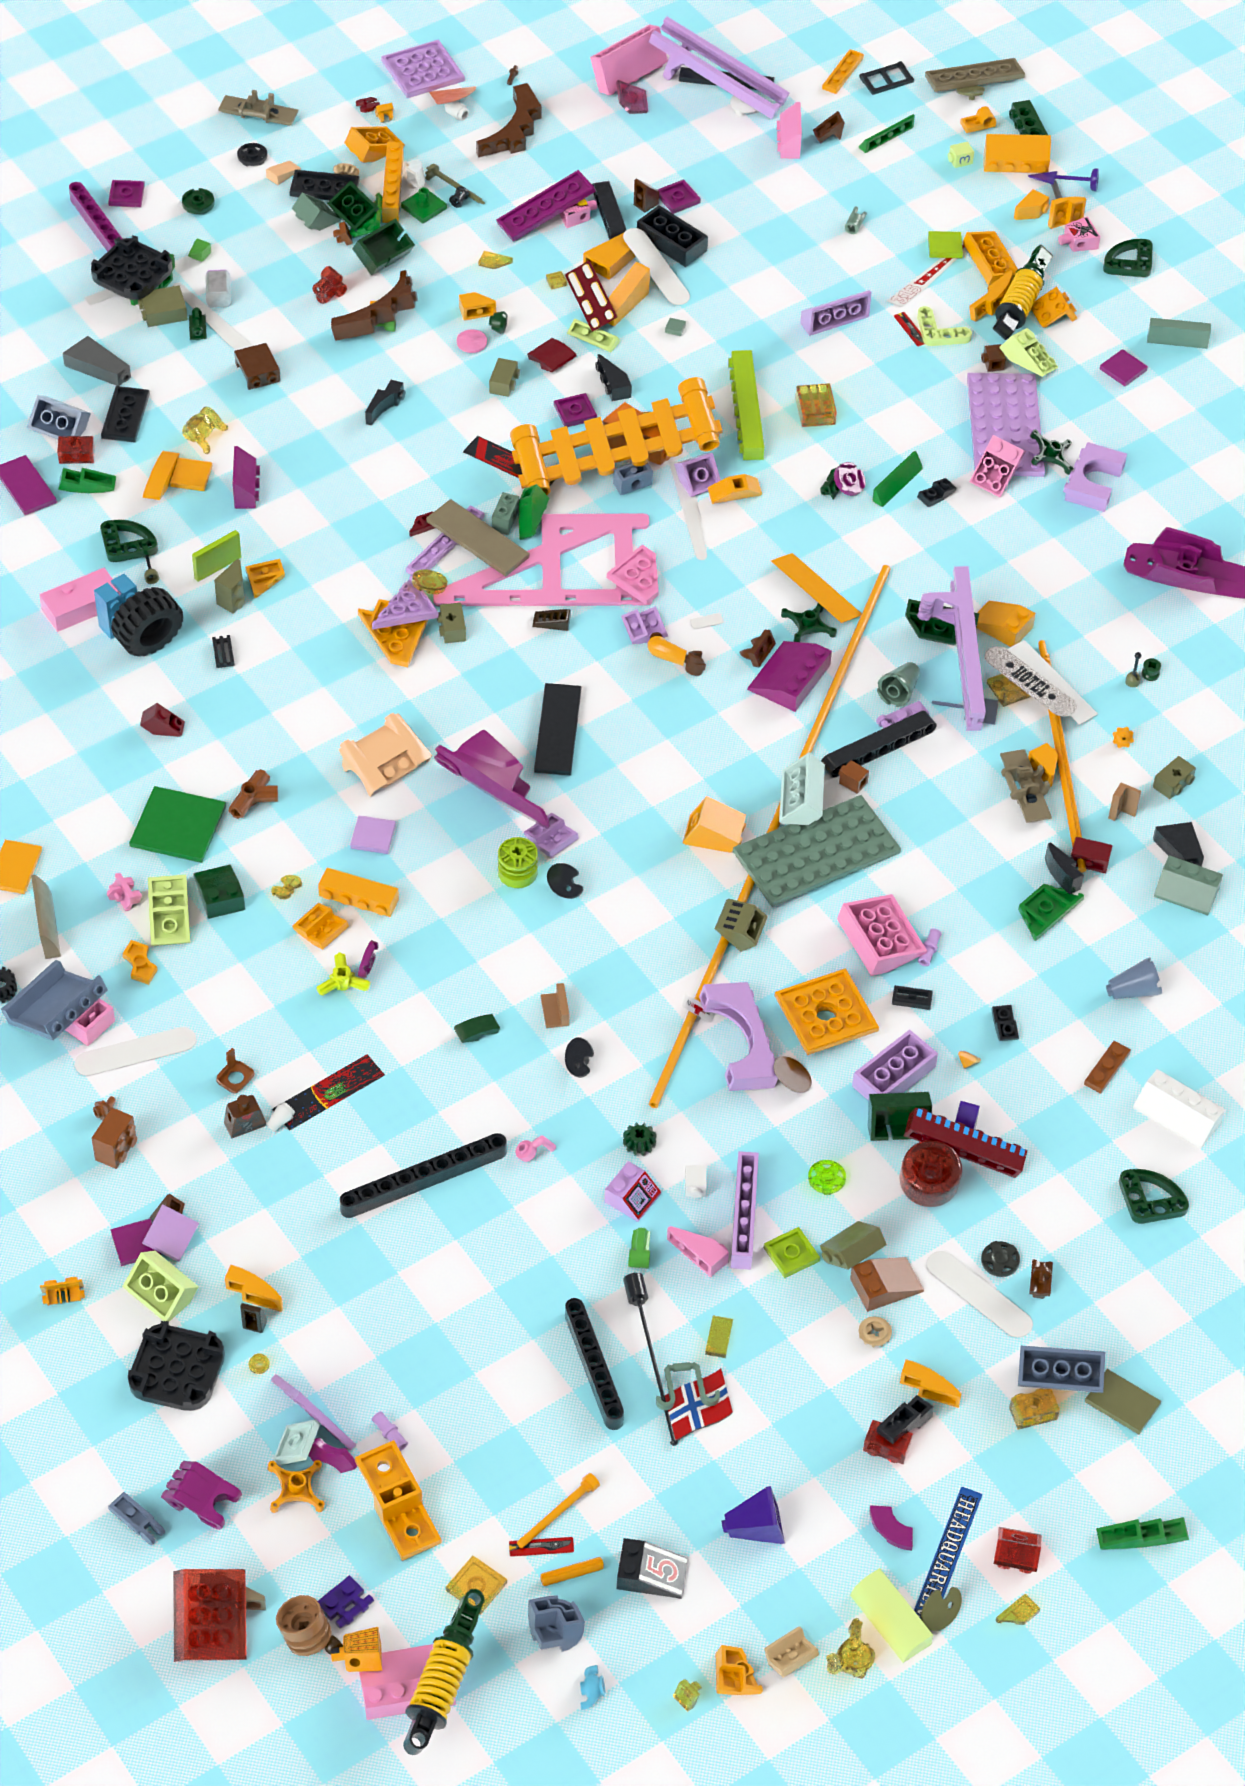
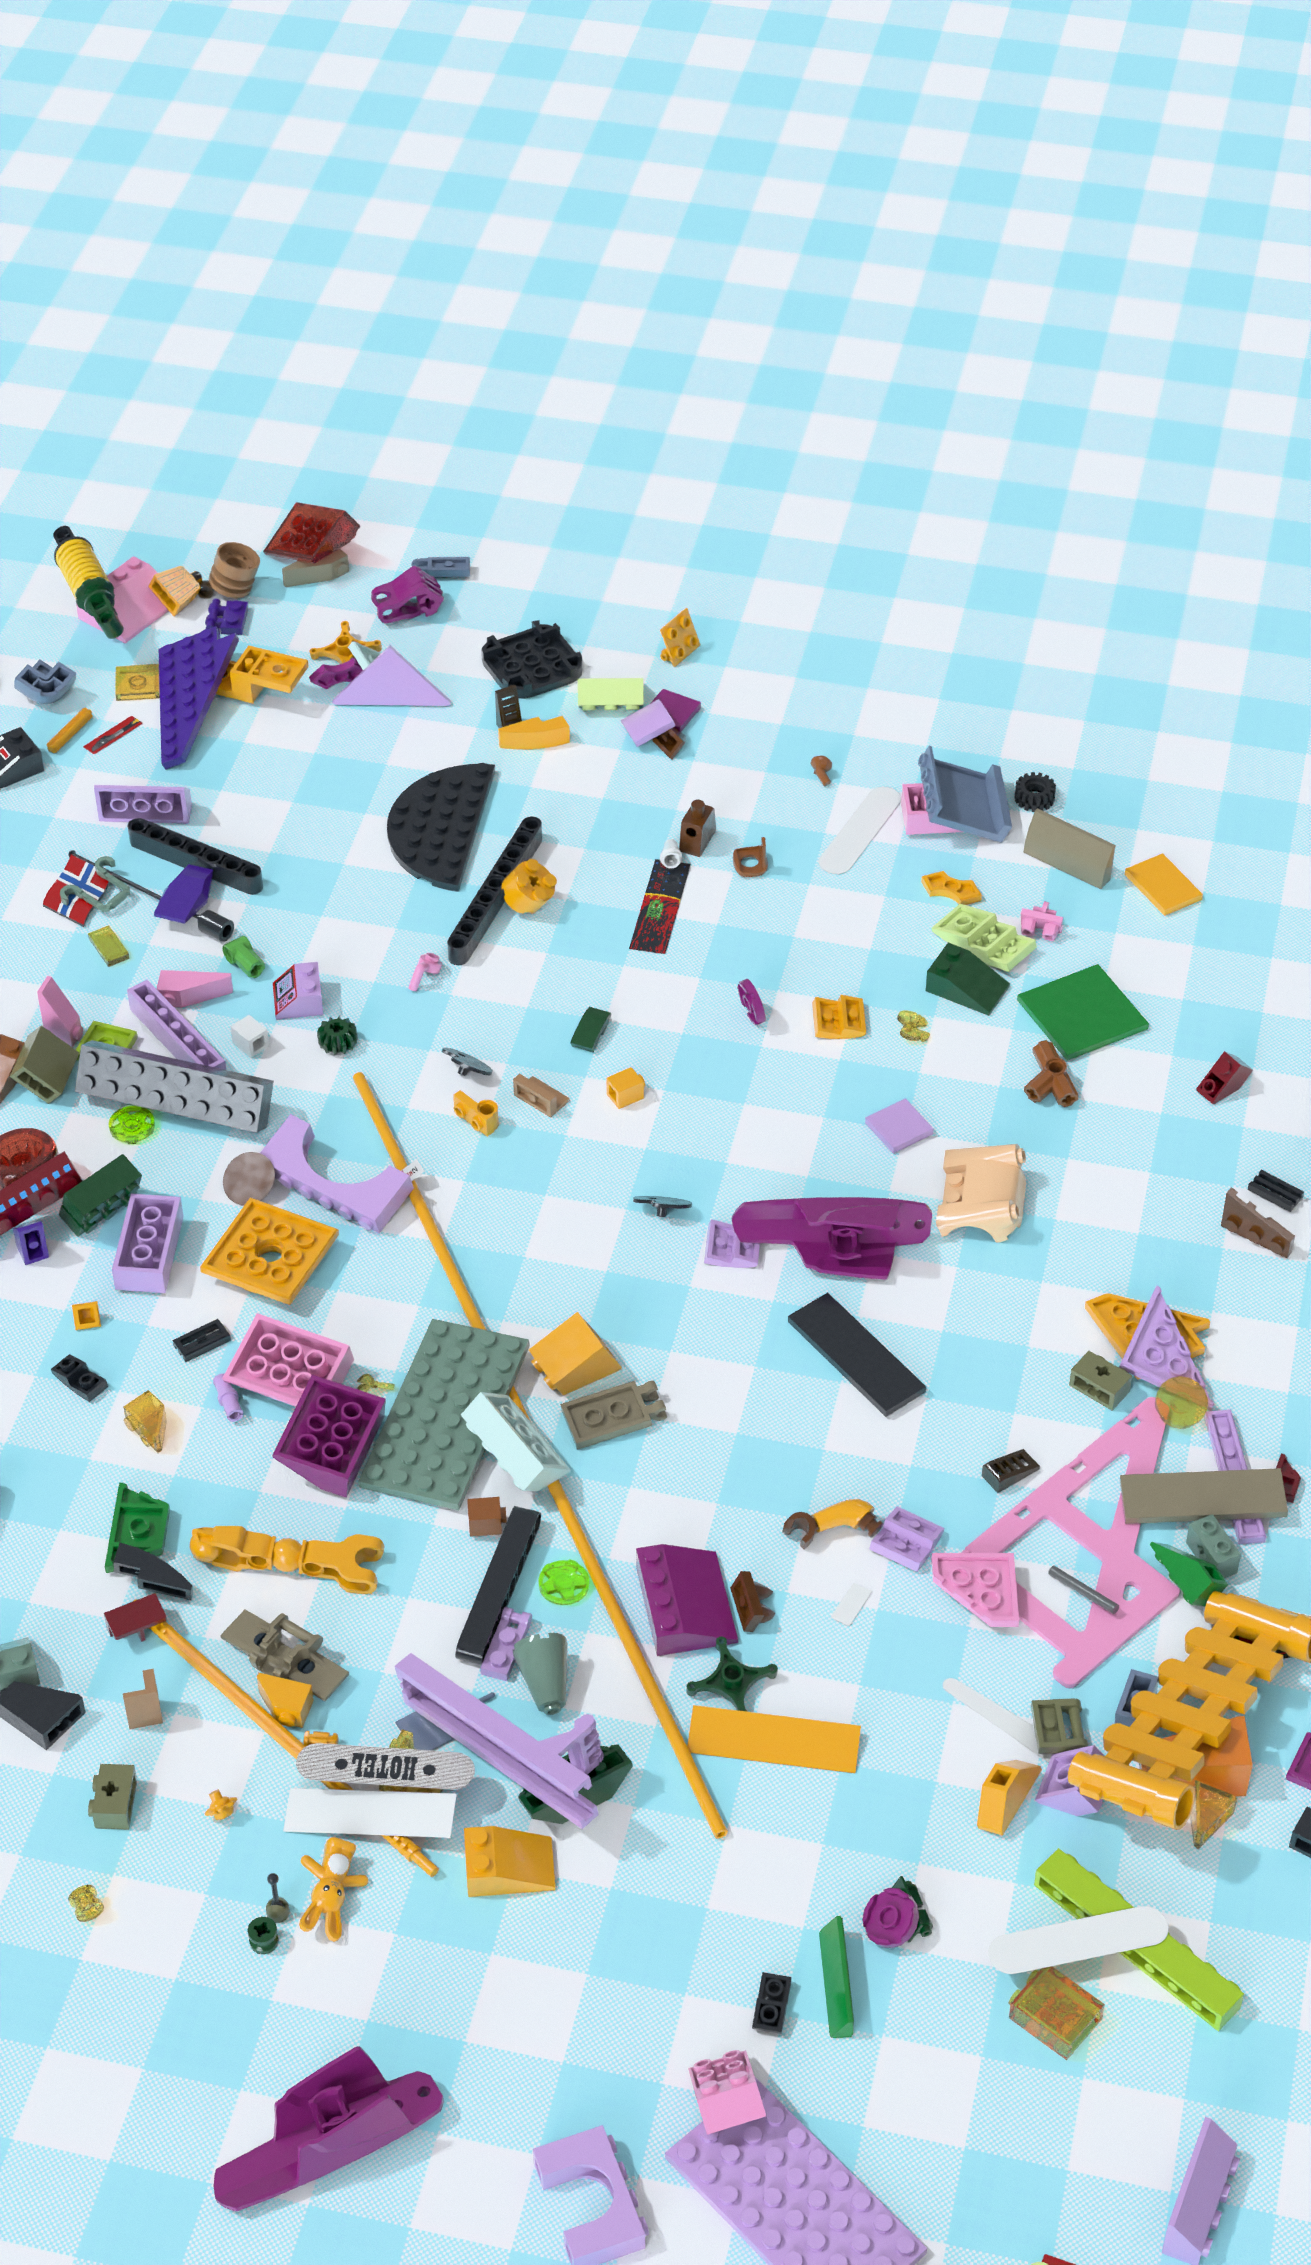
camera: 140 degrees right, 5 degrees down
(114, 1138) = (776, 742): dark orange brick -> none
(259, 1358) = (470, 698): clear yellow plate -> none
(268, 633) = (1248, 1223): none -> reddish brown wing
(342, 978) = (764, 984): neon yellow bush -> none
(358, 892) = (840, 1061): light orange brick -> none
(389, 1430) = (313, 720): lavender pin -> none
(396, 1271) = (437, 823): none -> black plate
(408, 1145) = (528, 887): none -> light orange brick
(442, 1536) = (187, 685): none -> dark purple wing
(503, 969) = (625, 1087): none -> light orange brick
(517, 862) = (724, 1178): lime wheel -> none
(587, 1437) = (150, 803): none -> lavender slope
(588, 1484) = (115, 779): light orange piece -> none
(589, 543) = (1083, 1589): none -> bar
(609, 1018) = (481, 1115): none -> light orange plate
(634, 1329) = (185, 894): none -> dark purple piece
(679, 503) = (1050, 1726): none -> olive plate
(724, 787) = (612, 1413): none -> dark tan tile
(741, 924) = (439, 1269): olive slope -> none
(779, 412) = (1078, 1940): none -> white sticker
(786, 1162) = (174, 1086): none -> brick
(814, 1276) = (58, 1013): none -> bright pink slope
(841, 725) = (563, 1581): none -> clear neon green wheel
(843, 898) = (369, 1382): none -> clear yellow hand
(895, 868) = (330, 1434): none -> magenta slope
(987, 963) = (148, 1419): none -> clear yellow slope
(1002, 849) = (242, 1549): none -> light orange piece
(1042, 737) = (320, 1737): none -> light orange piece
(1051, 451) = (683, 2189): dark green piece -> none
(1104, 662) = (329, 1891): none -> light orange animal
(1228, 738) = (86, 1903): none -> clear yellow wheel

